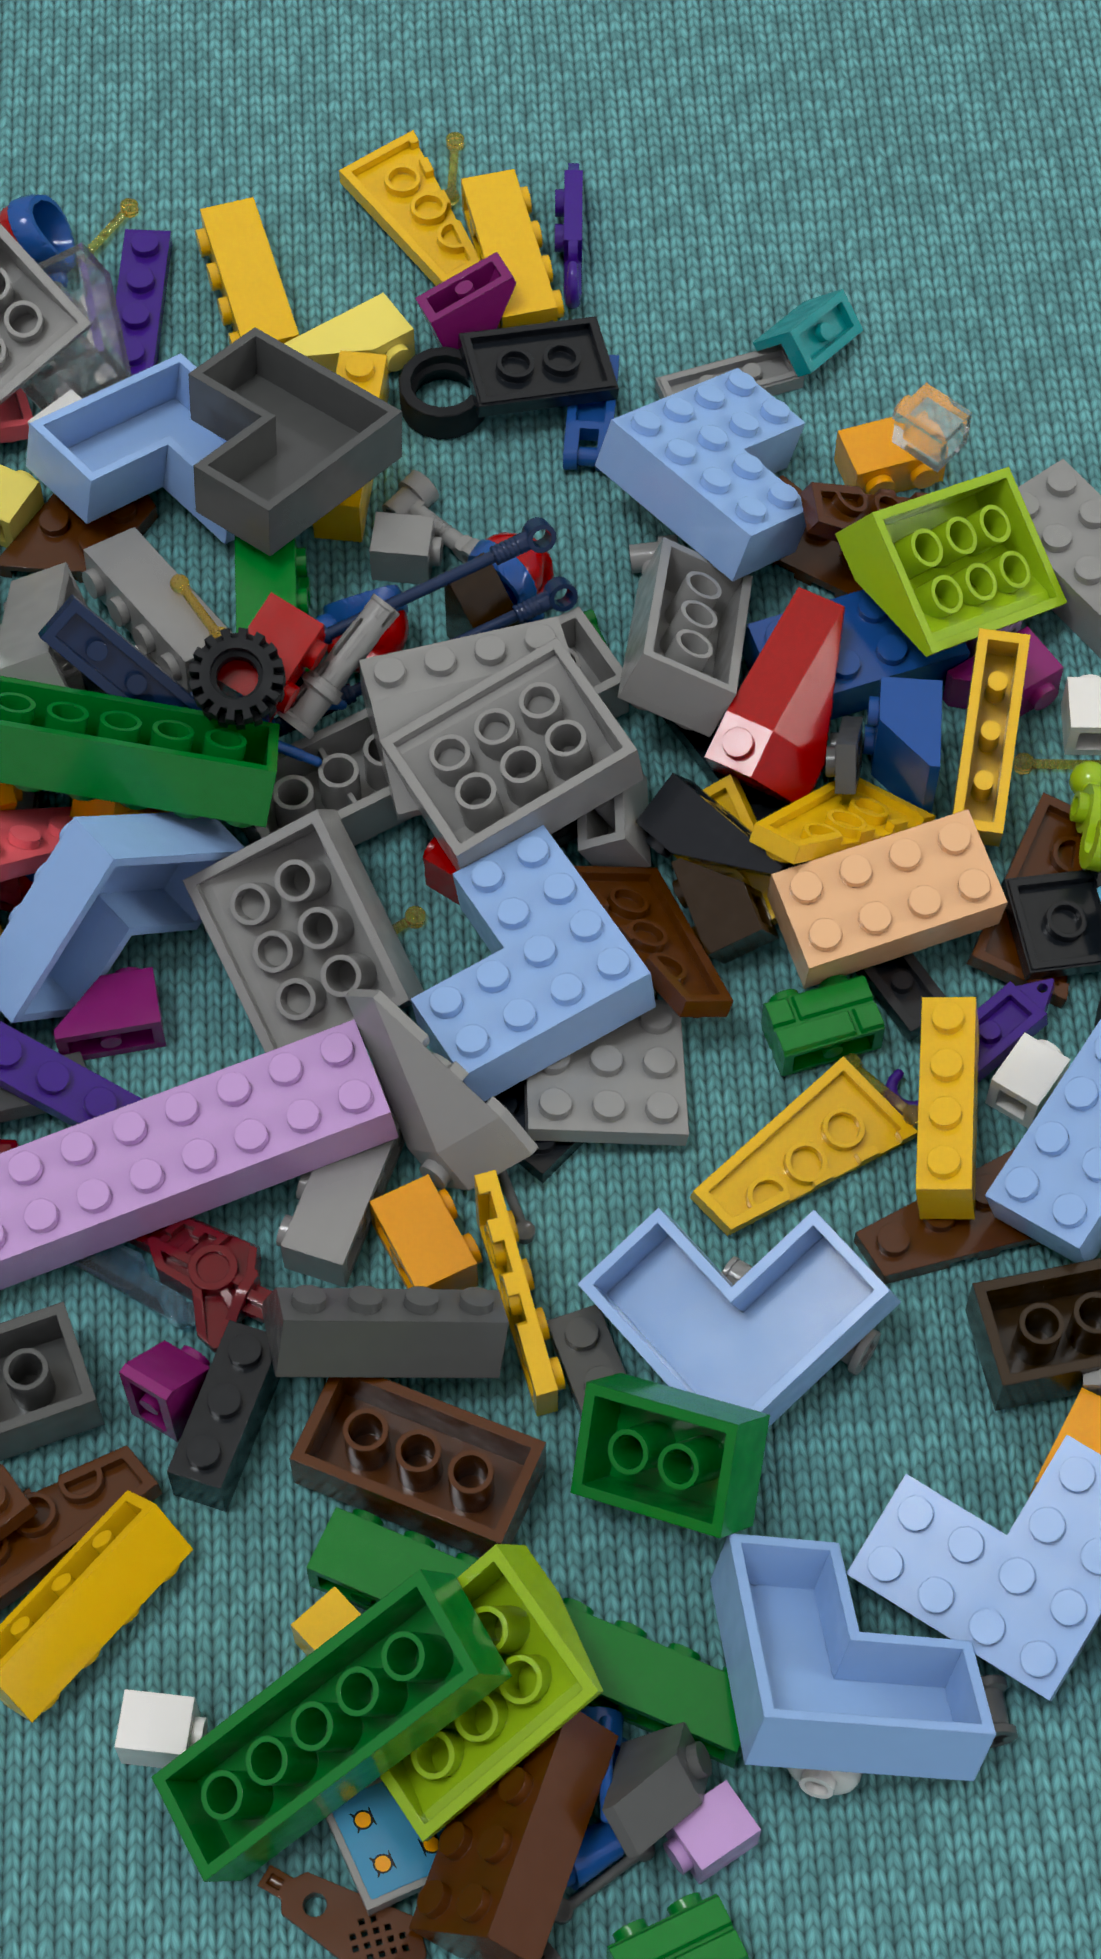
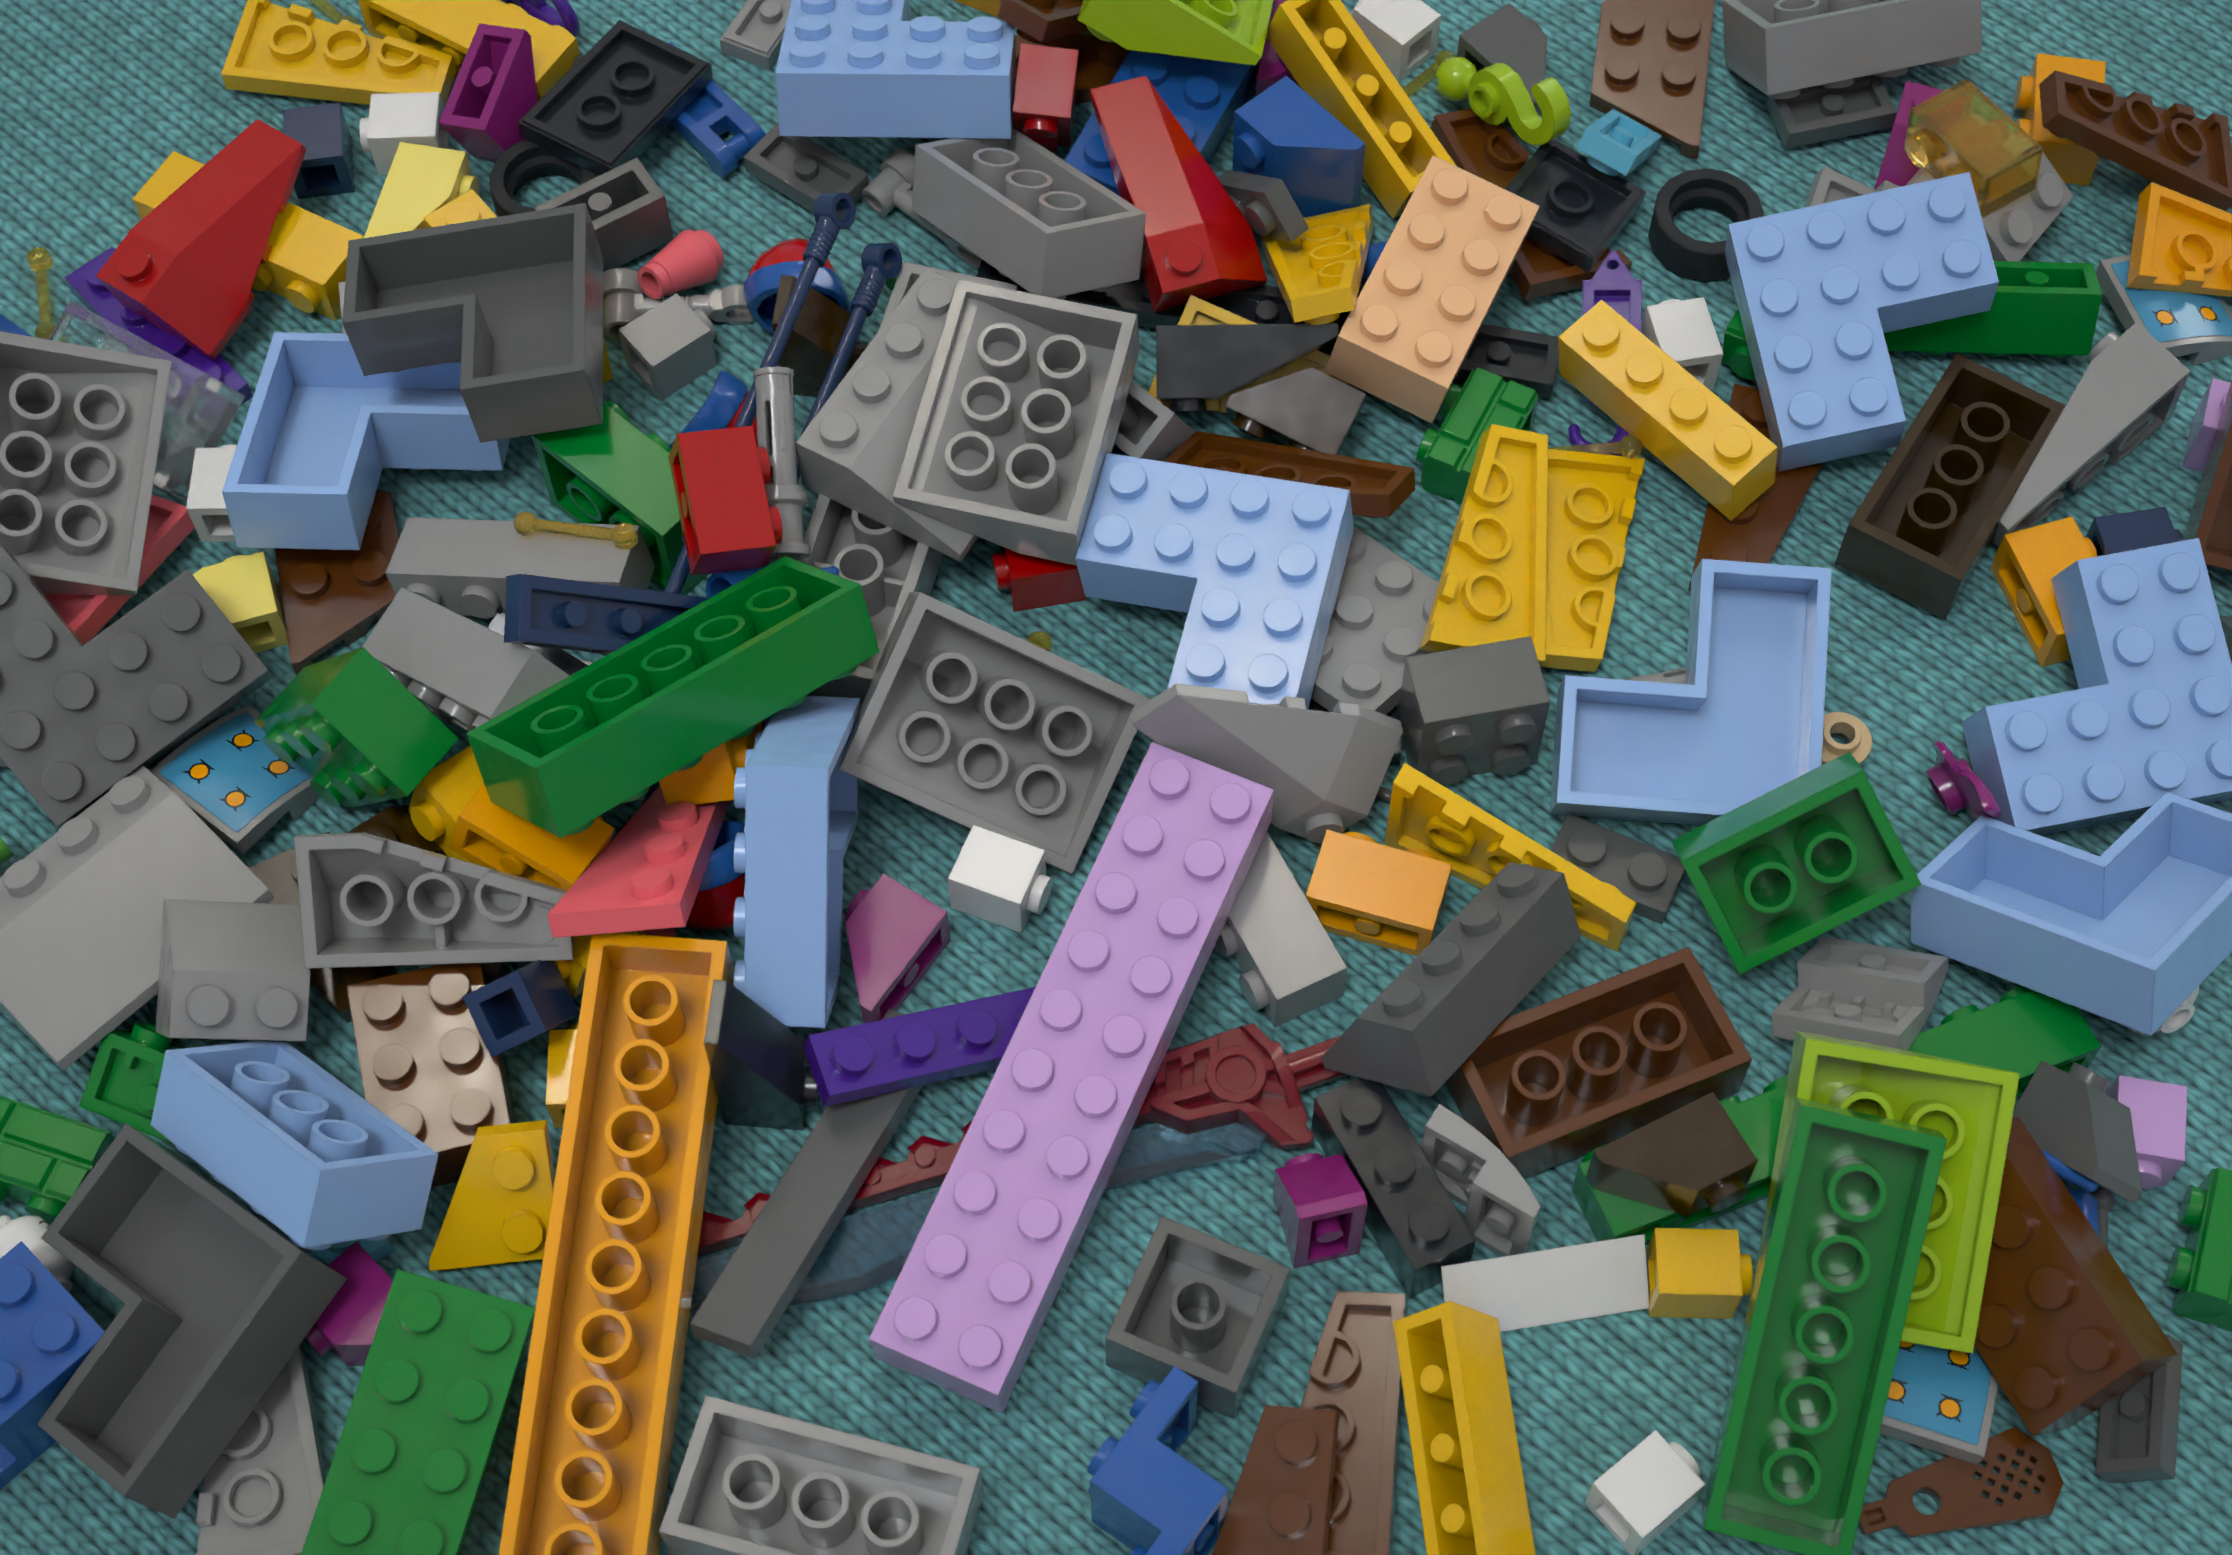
camera: 45 degrees left, 0 degrees up
(194, 267) = (202, 246): none -> red wedge
(220, 1029) = (999, 879): none -> white brick
(229, 648) = (738, 497): black tyre -> none
(246, 1560) = (1553, 1283): none -> white sticker
(264, 1463) = (1481, 1178): none -> light grey slope
(342, 262) = (329, 150): none -> dark blue brick
(378, 1548) = (1678, 1161): none -> dark brown slope
(402, 281) = (401, 119): none -> white brick
(448, 439) = (624, 210): none -> dark grey brick
(466, 503) = (682, 264): none -> coral cone
(597, 1181) = (1473, 710): none -> dark grey brick
(608, 511) = (802, 169): none -> dark grey plate
(631, 1580) = (1861, 993): none -> light grey slope
(717, 1111) = (1498, 550): none -> yellow wing
(785, 565) = (1046, 94): none -> brick
(820, 1434) = (1850, 728): none -> tan plate
(856, 1515) = (1959, 786): none -> magenta plate

